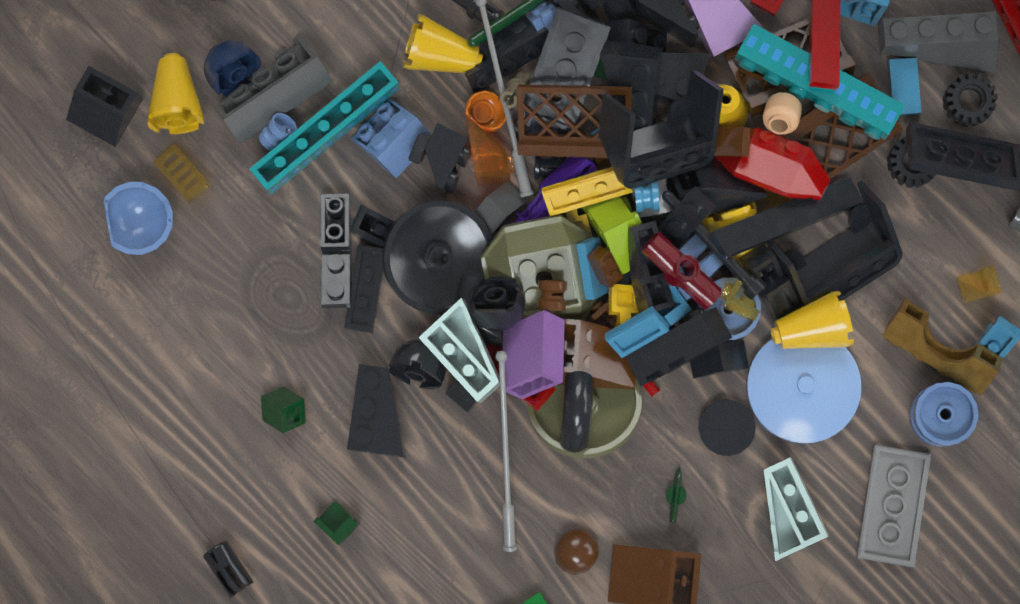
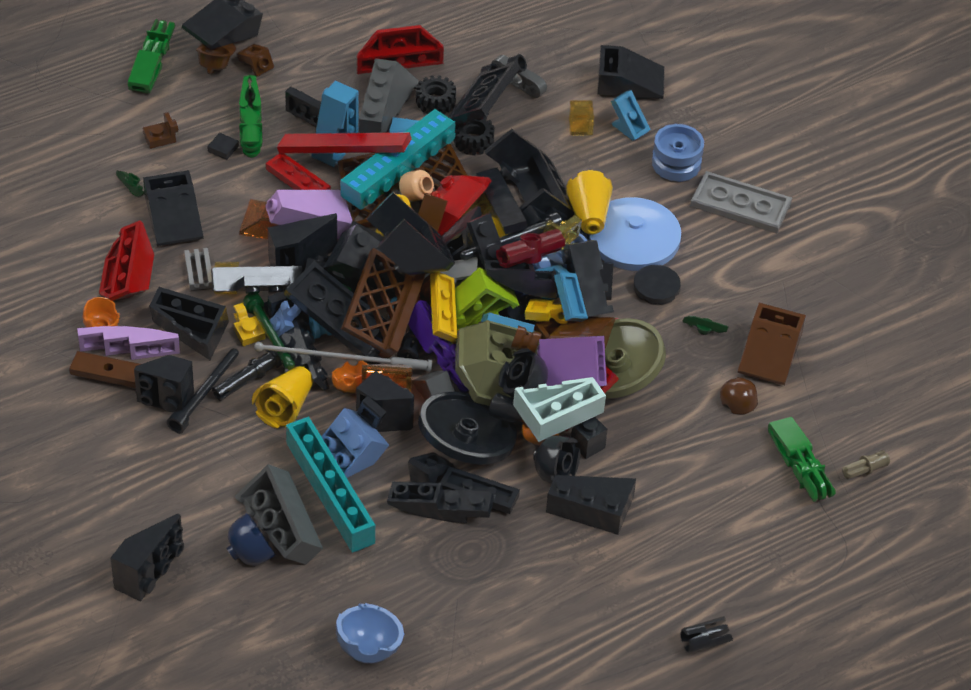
camera: 85 degrees left, 35 degrees down
(103, 106) = (253, 643): black slope -> none
(174, 98) = (264, 586): yellow cone -> none
(196, 190) = (341, 591): clear yellow slope -> none
(277, 130) = (326, 522): medium blue wheel -> none
(283, 409) = (571, 567): dark green panel -> none
(337, 523) = (685, 550): dark green panel -> none
(508, 508) = (694, 424): light grey piece -> none
(511, 89) = (342, 346): dark tan axle -> none
(577, 411) = (631, 343): black cylinder -> none
(604, 267) = (510, 308): reddish brown piece -> none
(647, 197) = (463, 265): dark azure wheel -> none
(791, 510) = (733, 252): light aqua wedge -> none
(970, 367) = (608, 156): pearl gold arch -> none

